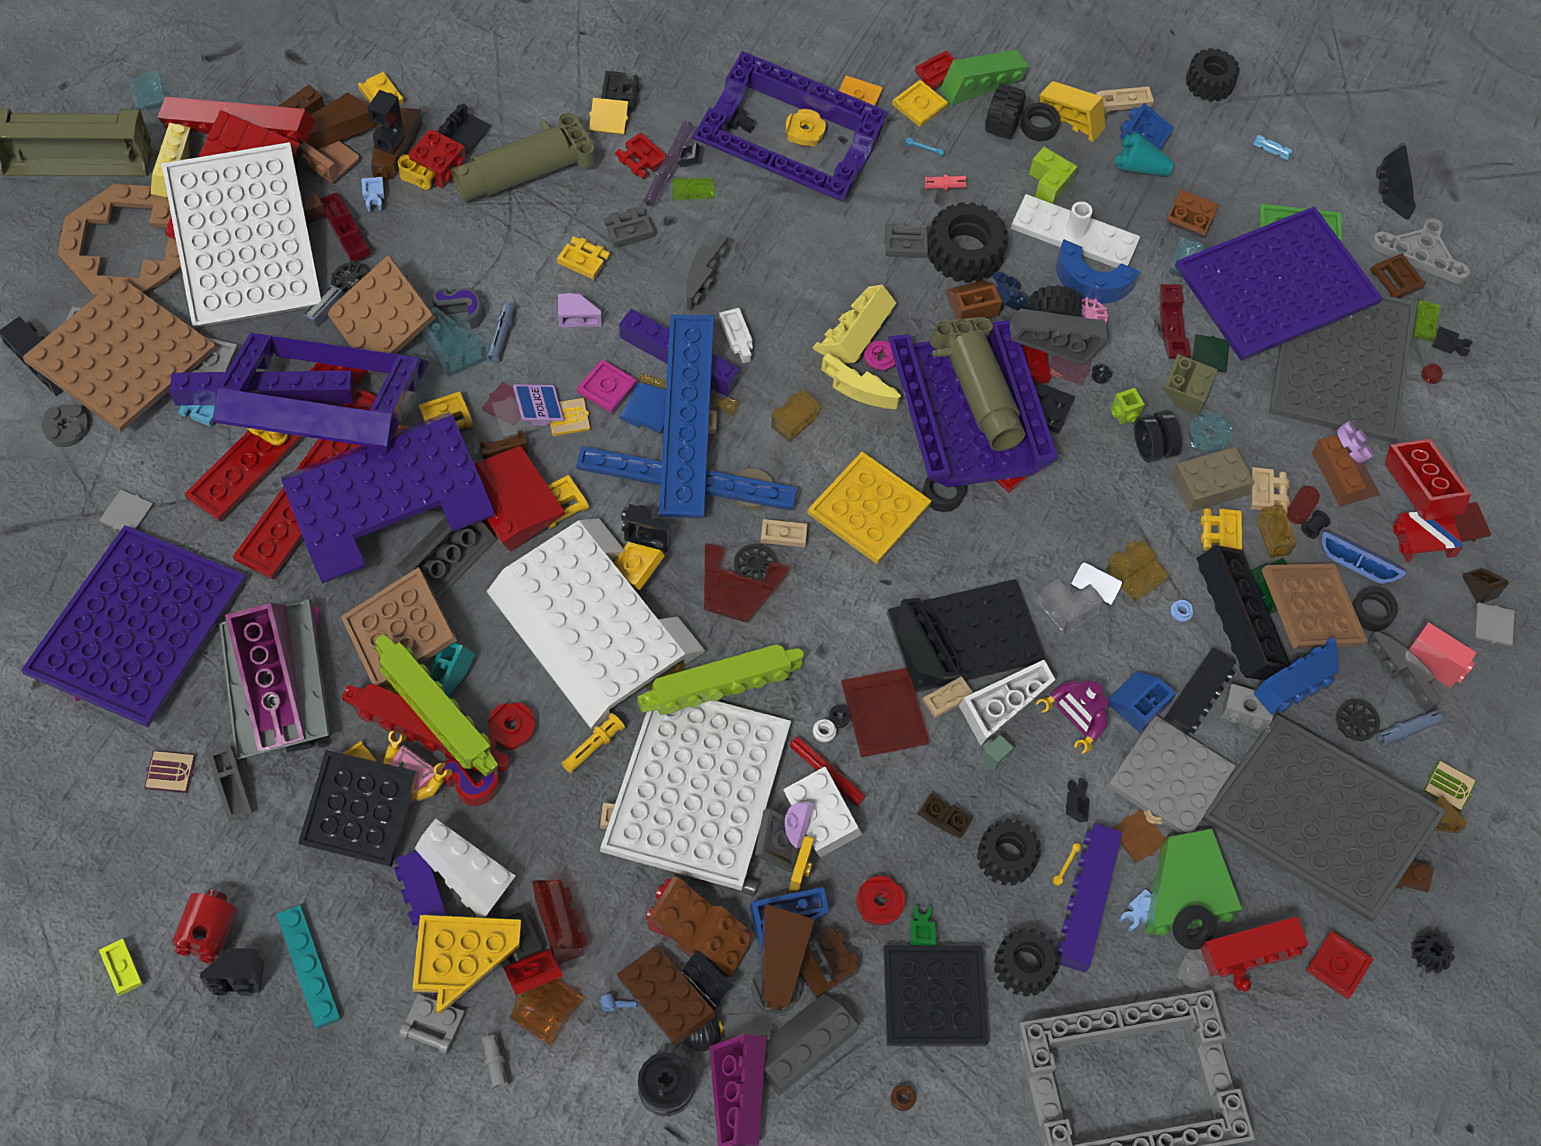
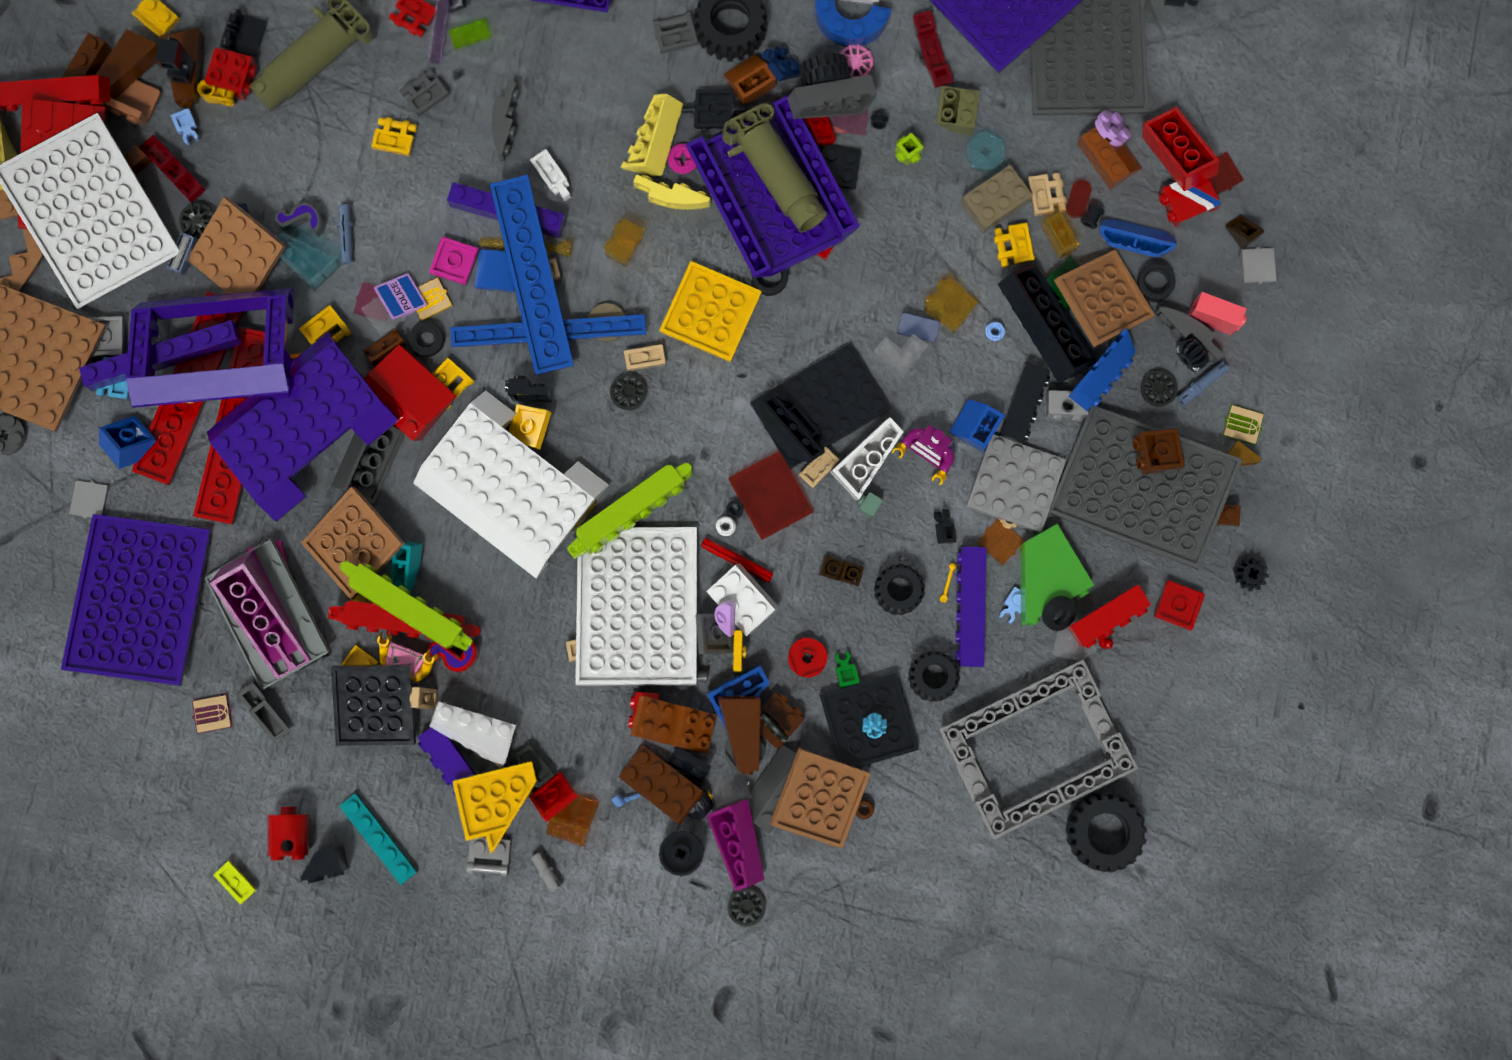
camera: 10 degrees left, 20 degrees up
(190, 461) = (125, 441): none -> blue slope
(418, 815) = (423, 698): none -> tan plate
(511, 712) = (466, 586): red plate -> none
(551, 440) = (421, 328): none -> black tyre
(559, 919) = (560, 748): clear red slope -> none
(577, 311) = (405, 195): lavender slope -> none
(599, 733) = (530, 614): yellow pin -> none
(736, 594) = (619, 426): clear red wing -> none
(854, 1063) = (820, 798): none -> medium nougat plate
(923, 315) = (713, 108): none -> black plate
(942, 996) = (874, 725): none -> medium azure gear
(1157, 436) = (941, 173): black wheel -> none
(1211, 352) = (970, 69): clear green piece -> none
(1348, 776) = (1158, 451): none -> reddish brown plate
(1404, 691) = (1192, 355): none -> black gear
(1436, 372) = (1170, 29): clear red plate -> none

